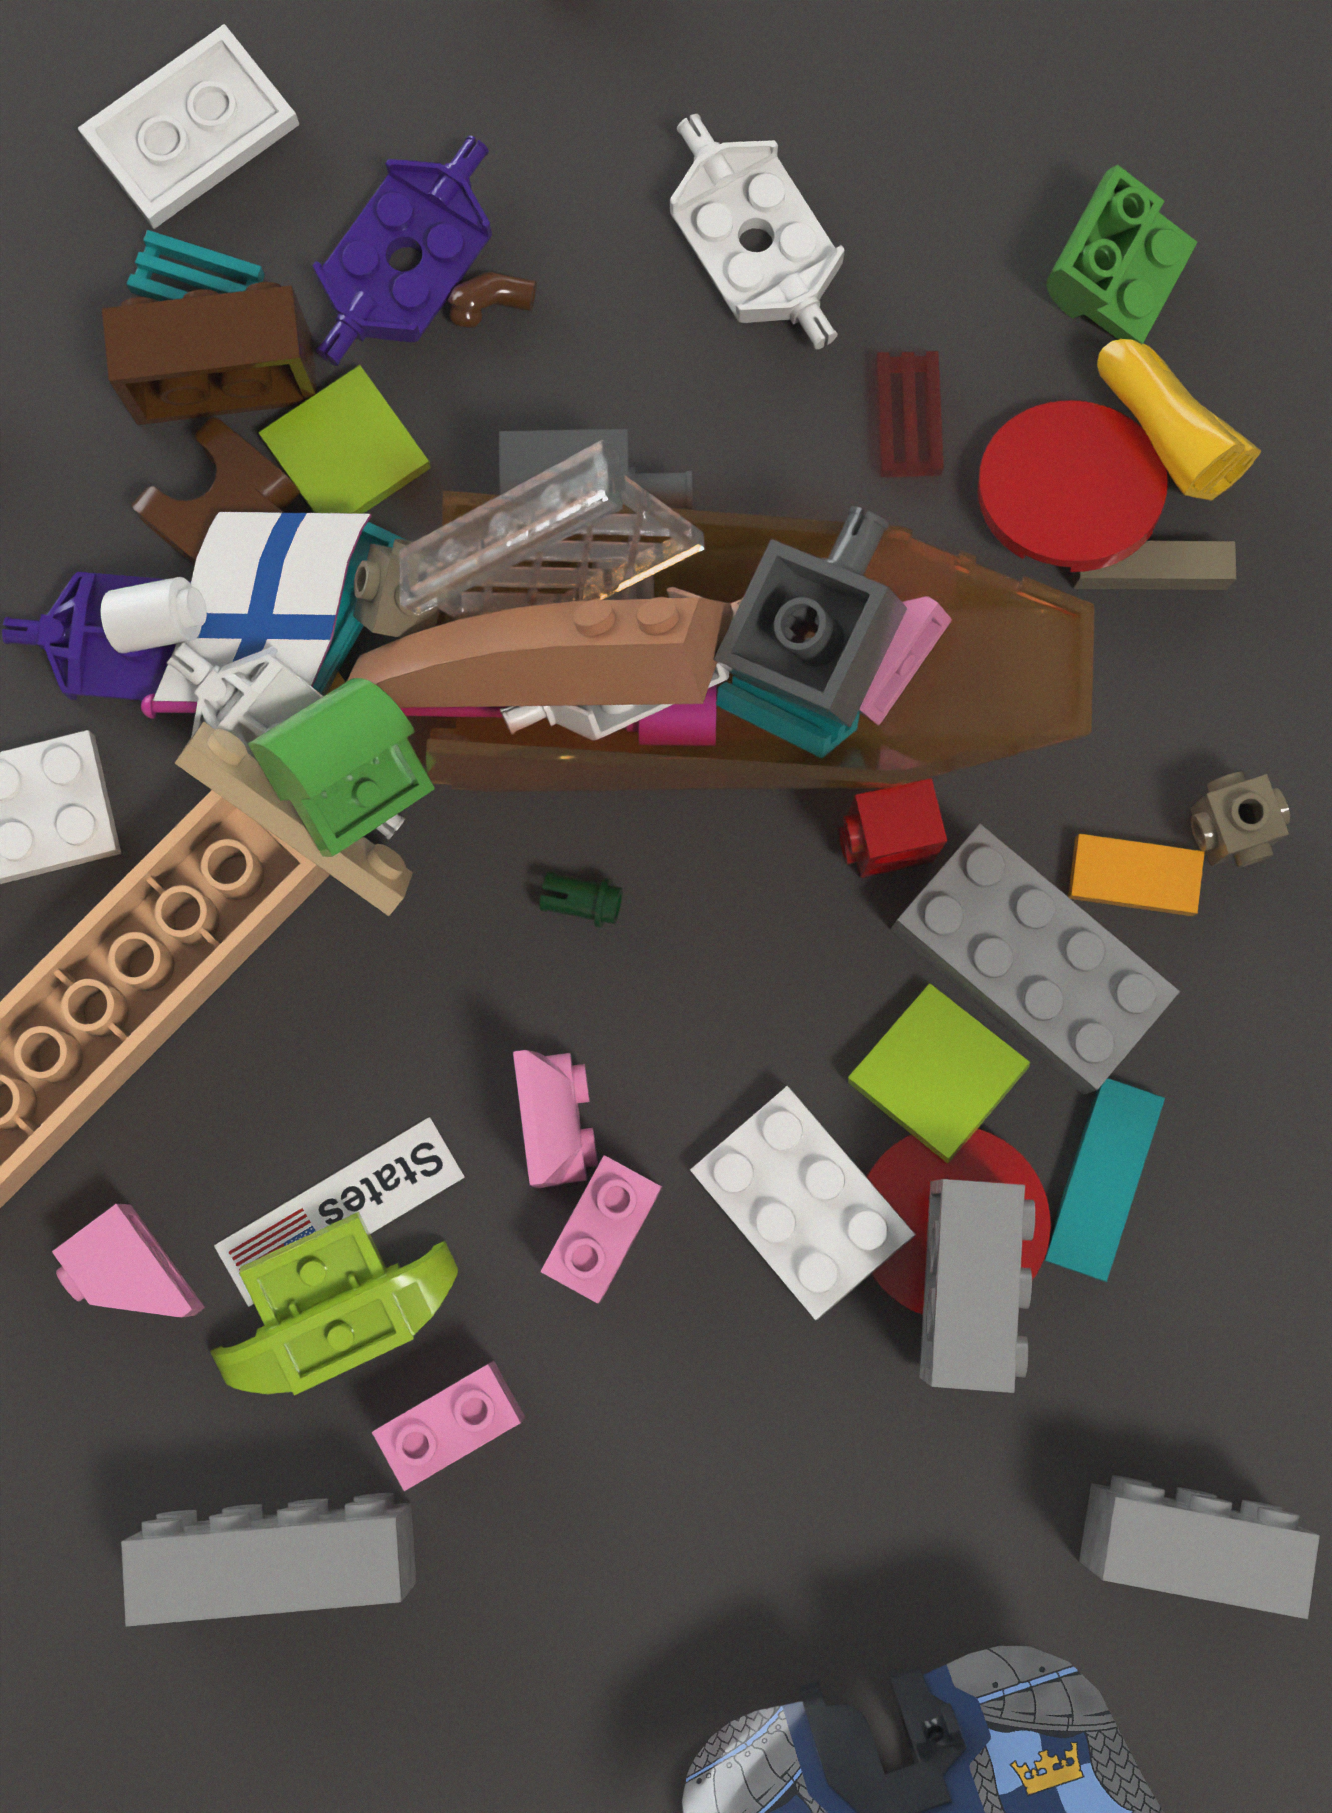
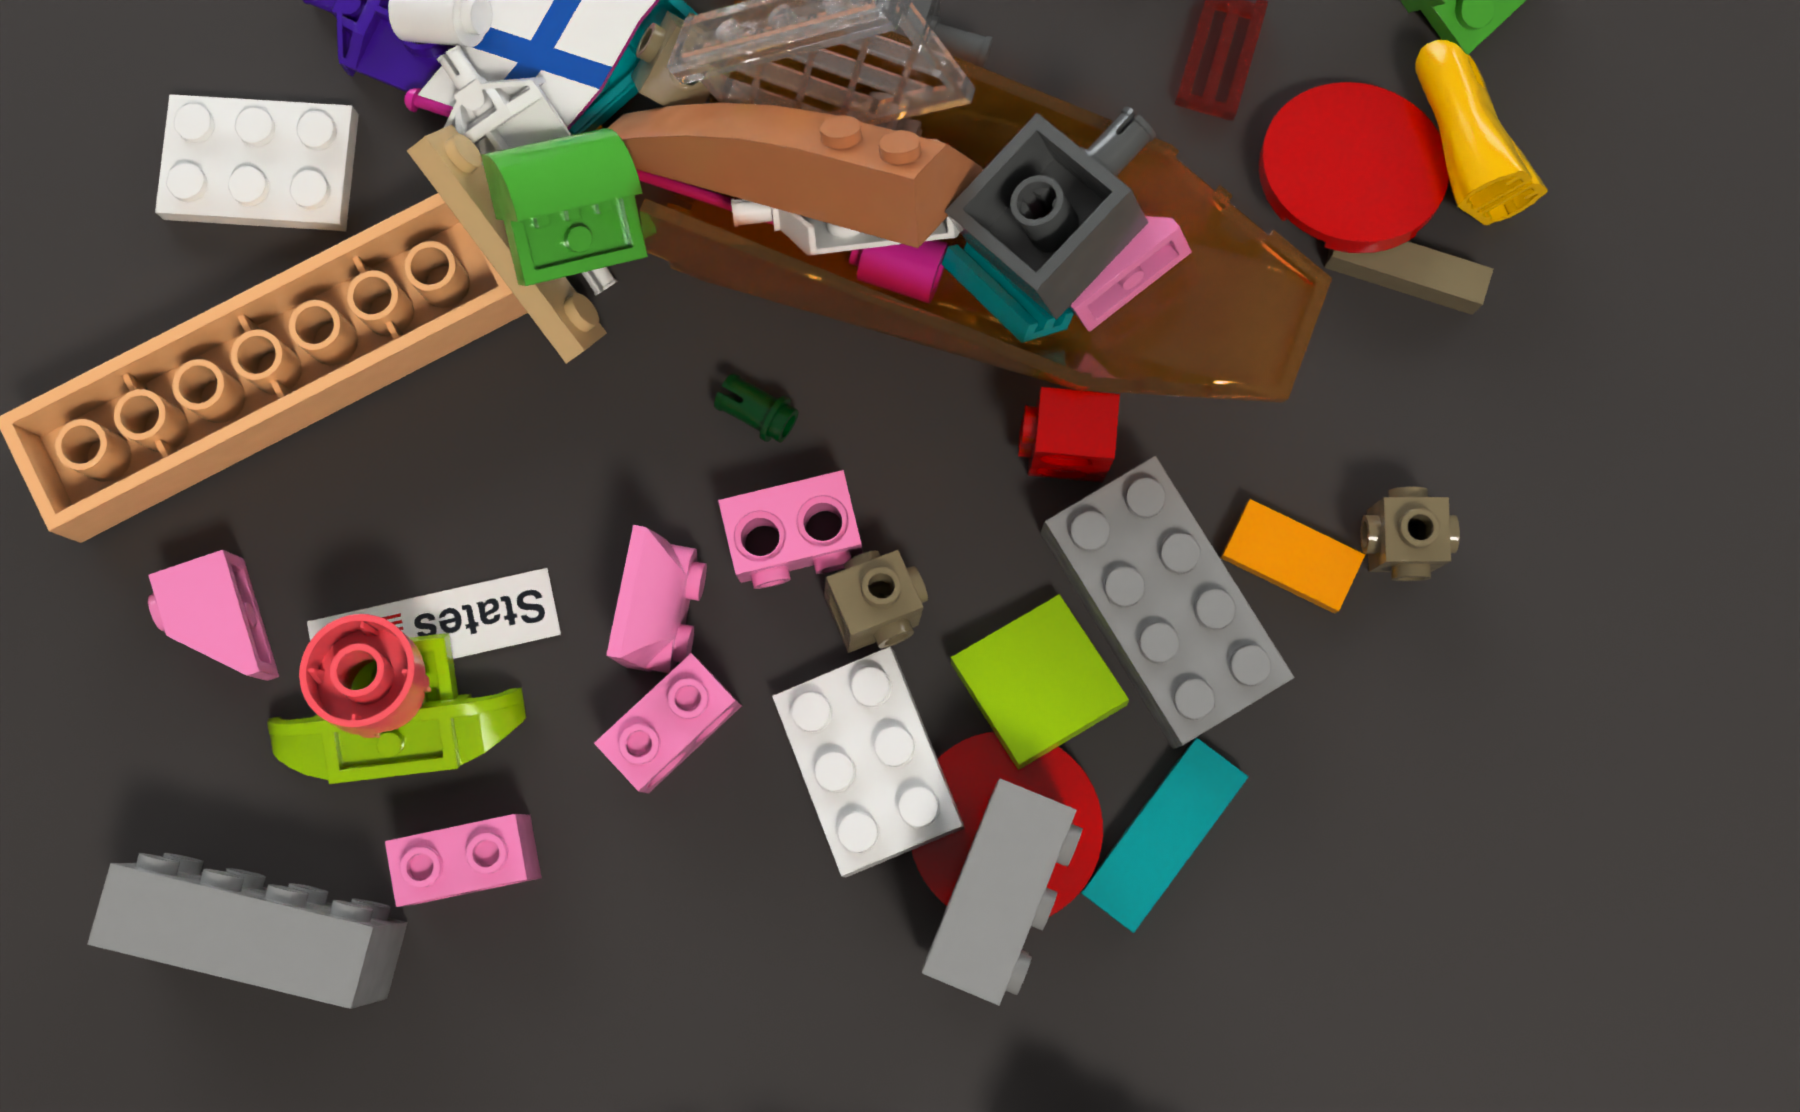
camera: 20 degrees right, 0 degrees up
(267, 1273) = (337, 657): none -> coral piece
(645, 990) = (788, 511): none -> bright pink brick
(759, 1046) = (875, 600): none -> dark tan brick

